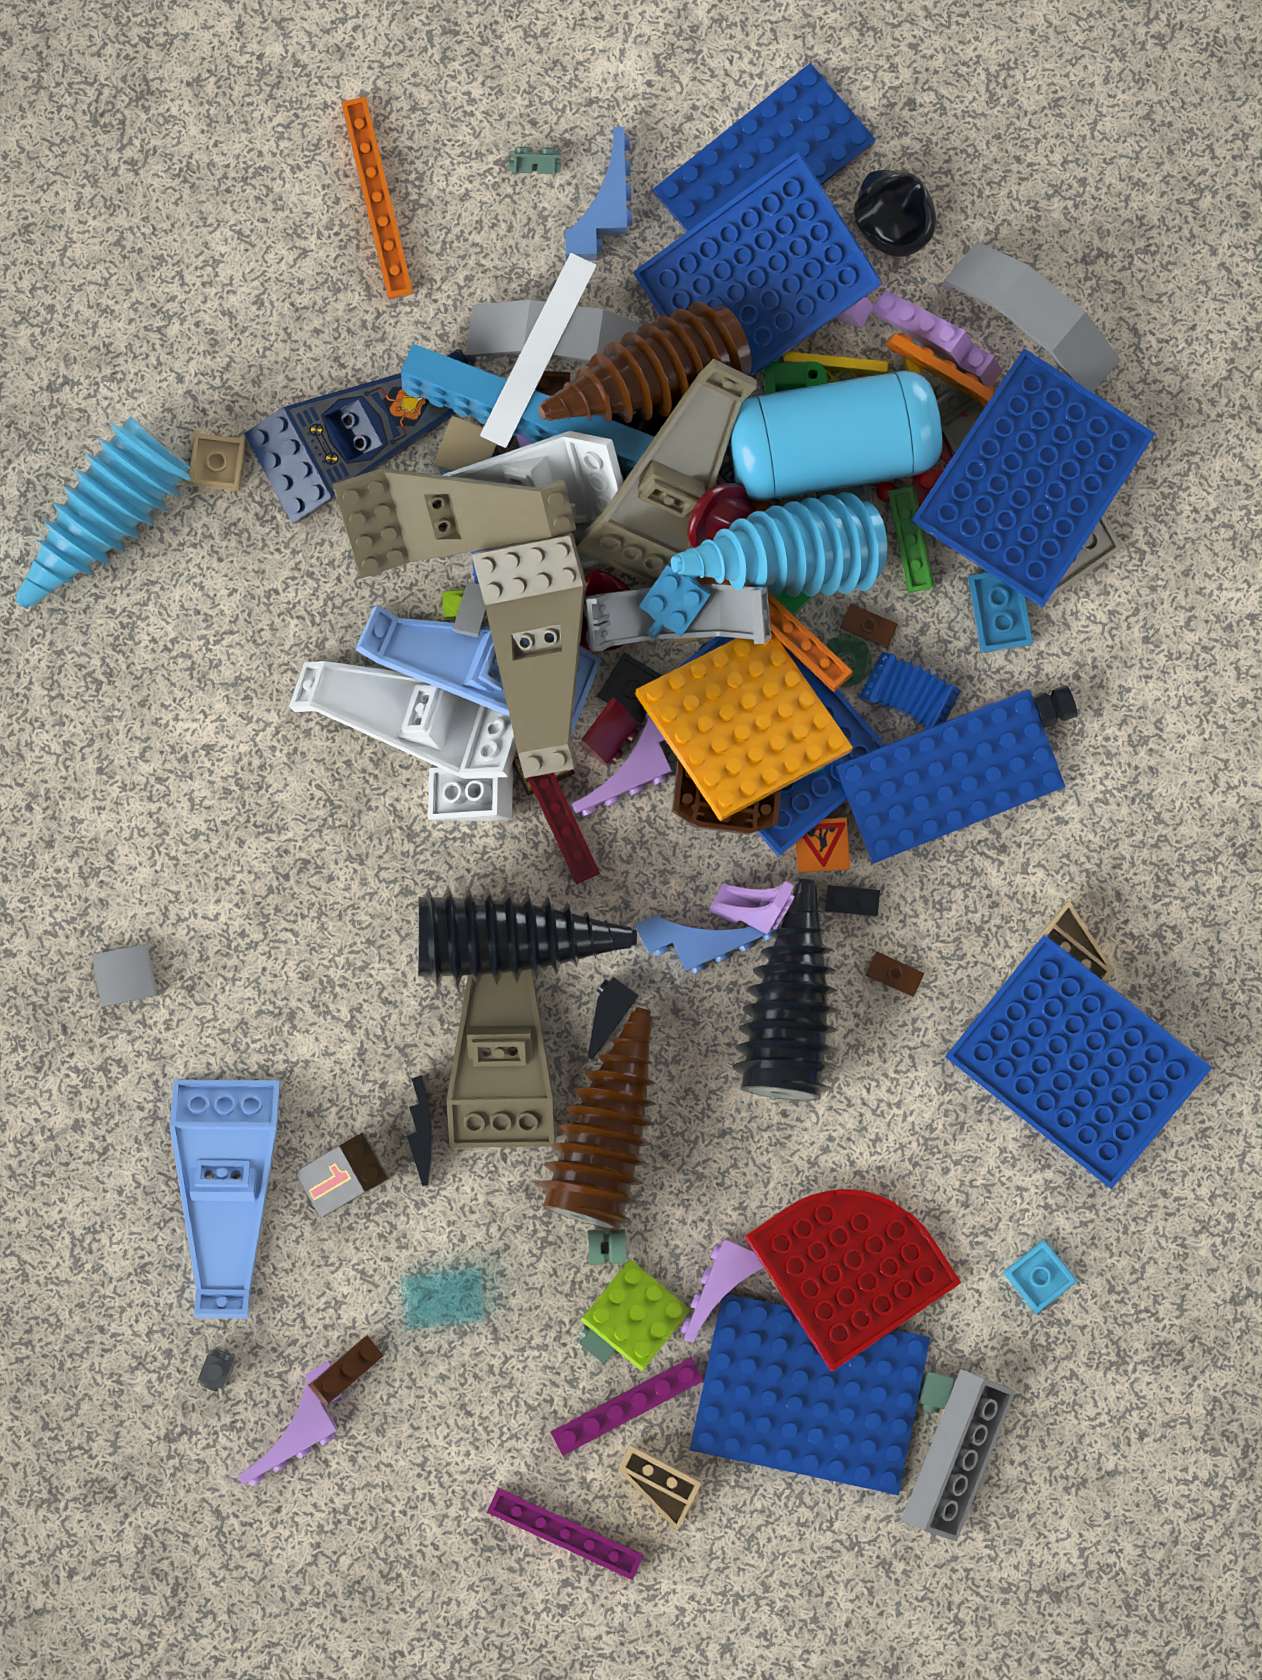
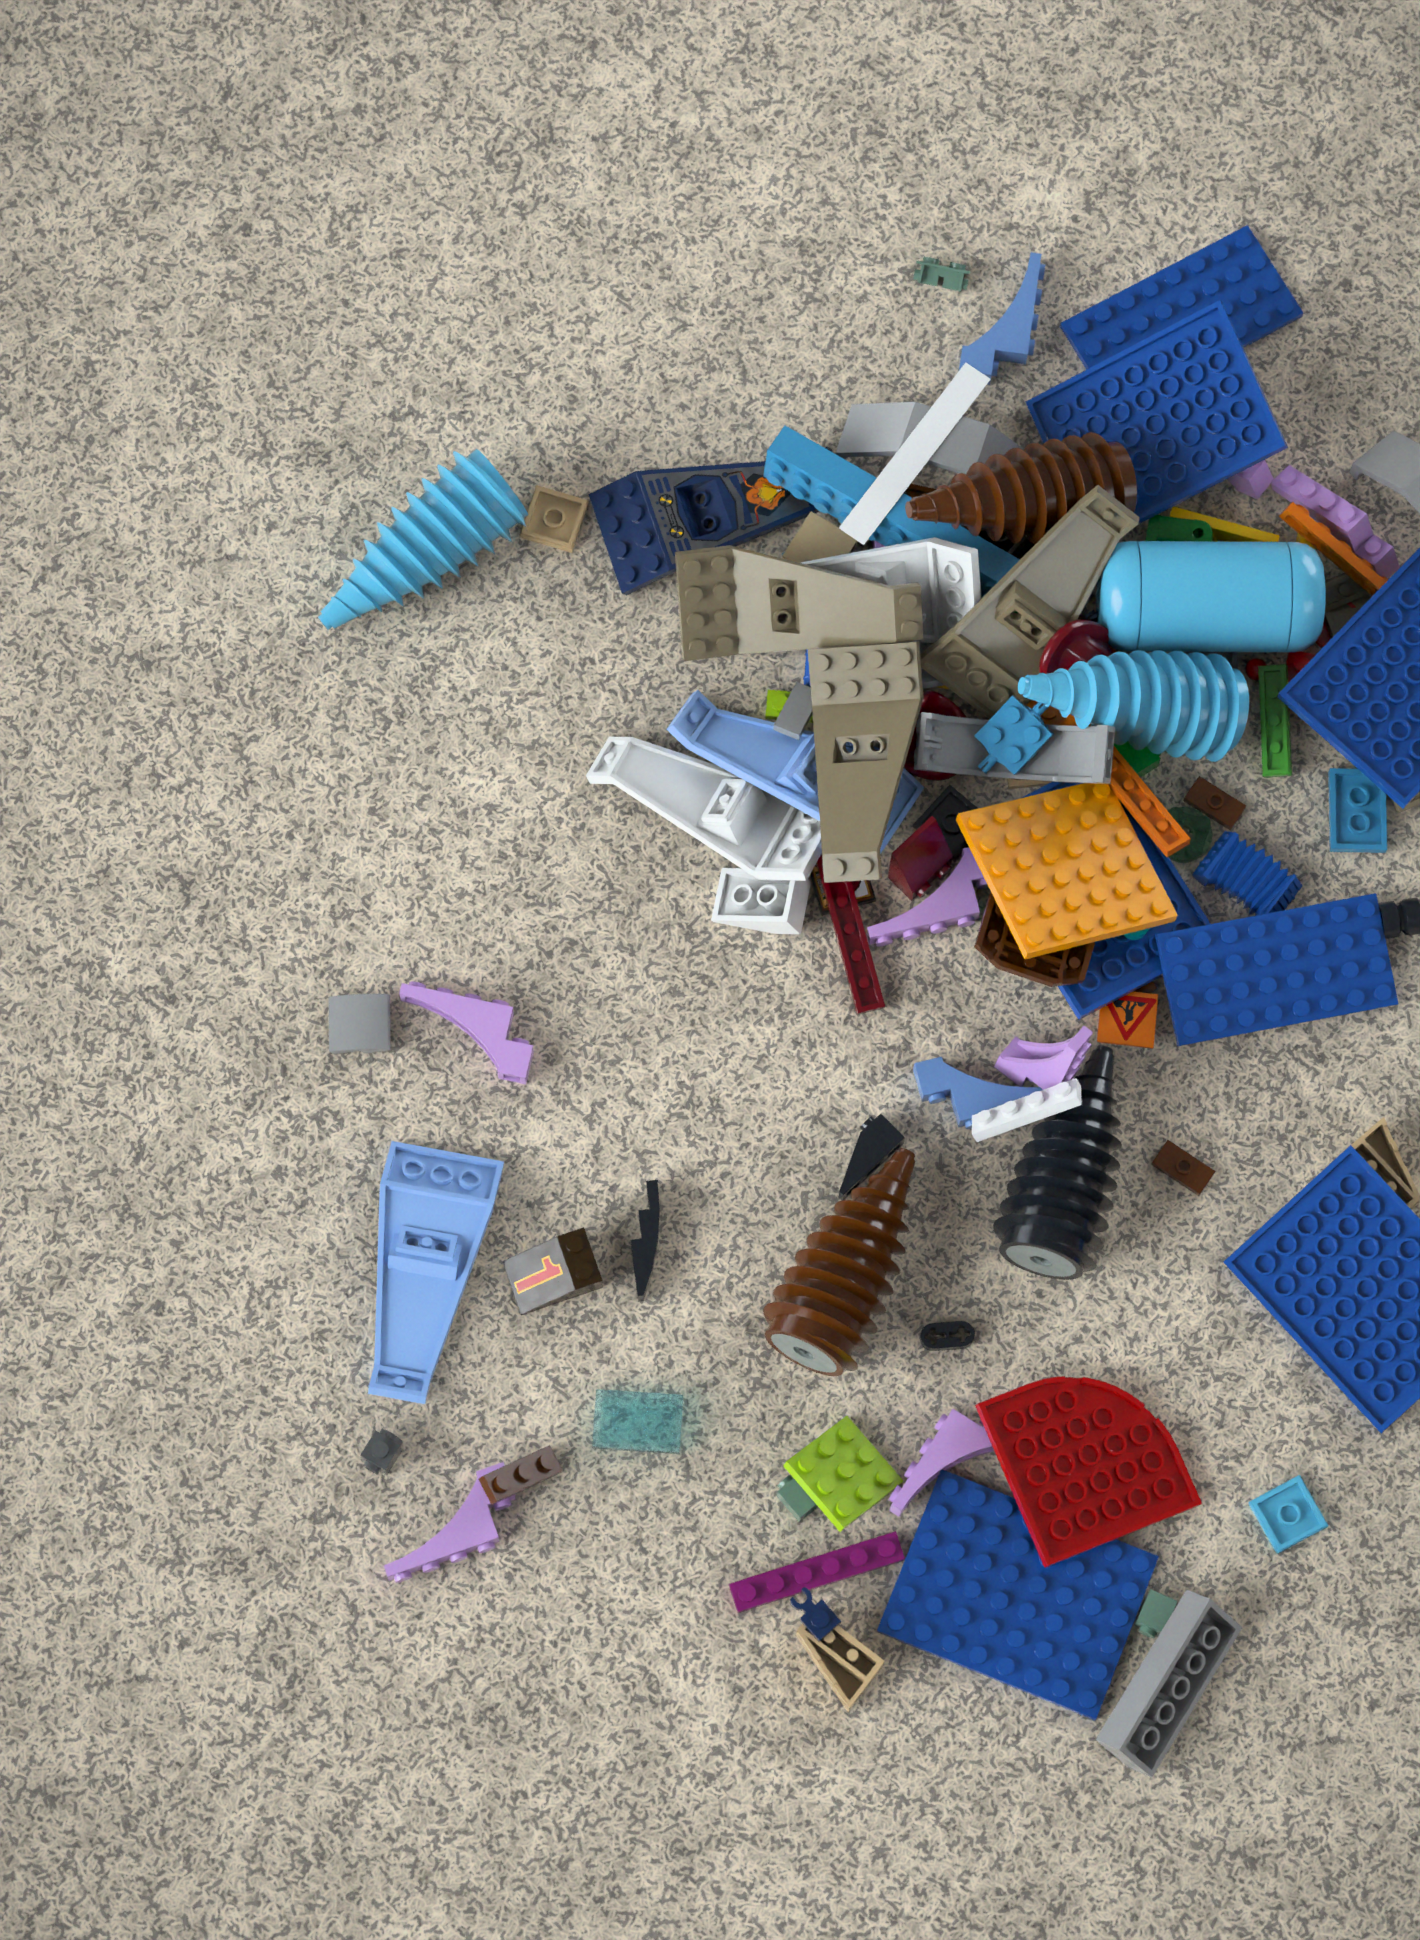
camera: 10 degrees right, 10 degrees down
(237, 953) = (483, 1021): none -> lavender arch
(377, 198) = (770, 283): orange plate -> none
(500, 1093) = (737, 1216): dark tan wing -> none
(506, 936) = (772, 1045): black cone -> none
(565, 1533) = (726, 1695): magenta plate -> none
(617, 1247) = (835, 1400): sand green wheel -> none
(635, 1456) = (818, 1617): none -> dark blue plate
(706, 1162) = (947, 1343): none -> black beam
(745, 955) = (1026, 1110): none -> white plate
(852, 901) = (1150, 1083): black plate -> none
(895, 212) = (1312, 387): black piece -> none

